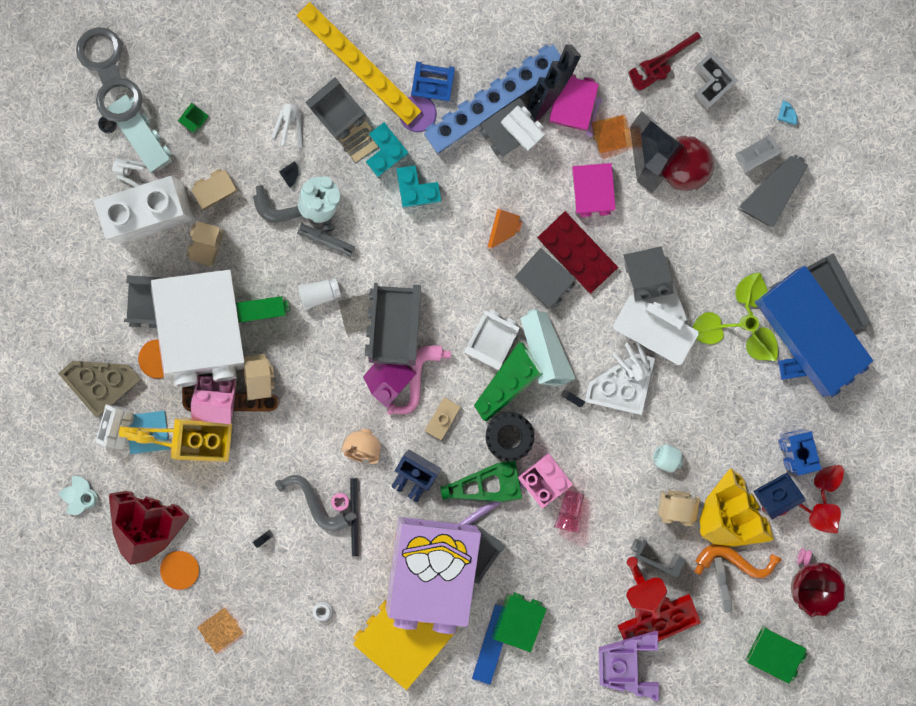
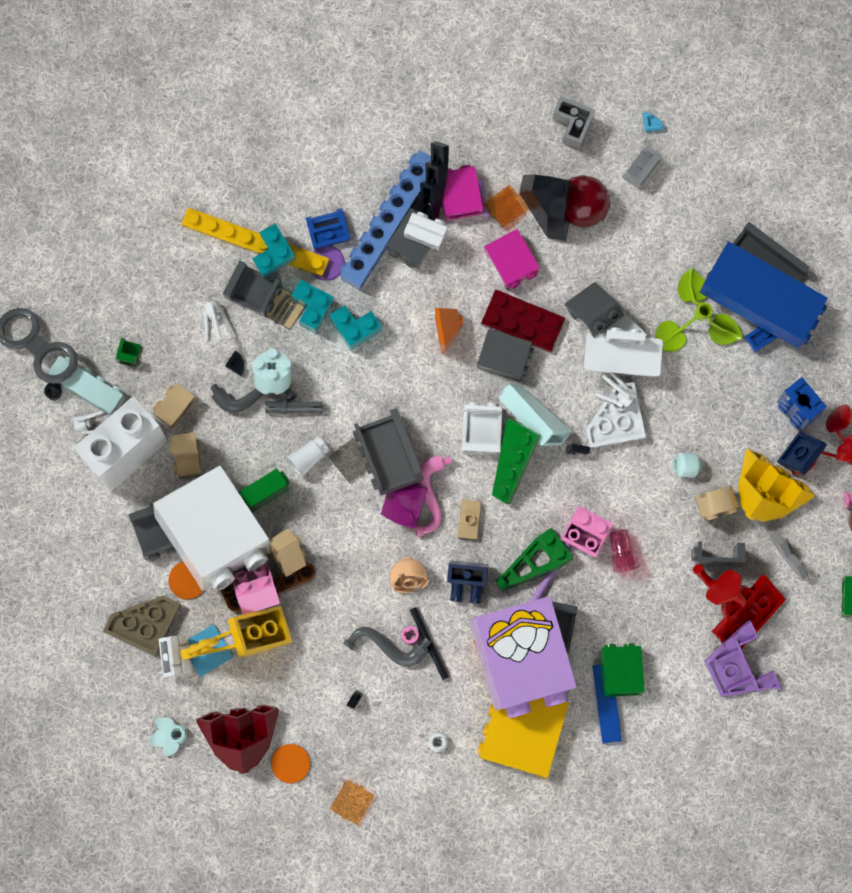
camera: 15 degrees left, 10 degrees down
(375, 85) = (278, 252): none -> teal brick
(520, 450) = (540, 491): black tyre -> none
(656, 68) = (518, 132): dark red piece -> none
(713, 551) = (762, 538): orange animal -> none
(774, 192) = (671, 197): dark grey slope -> none

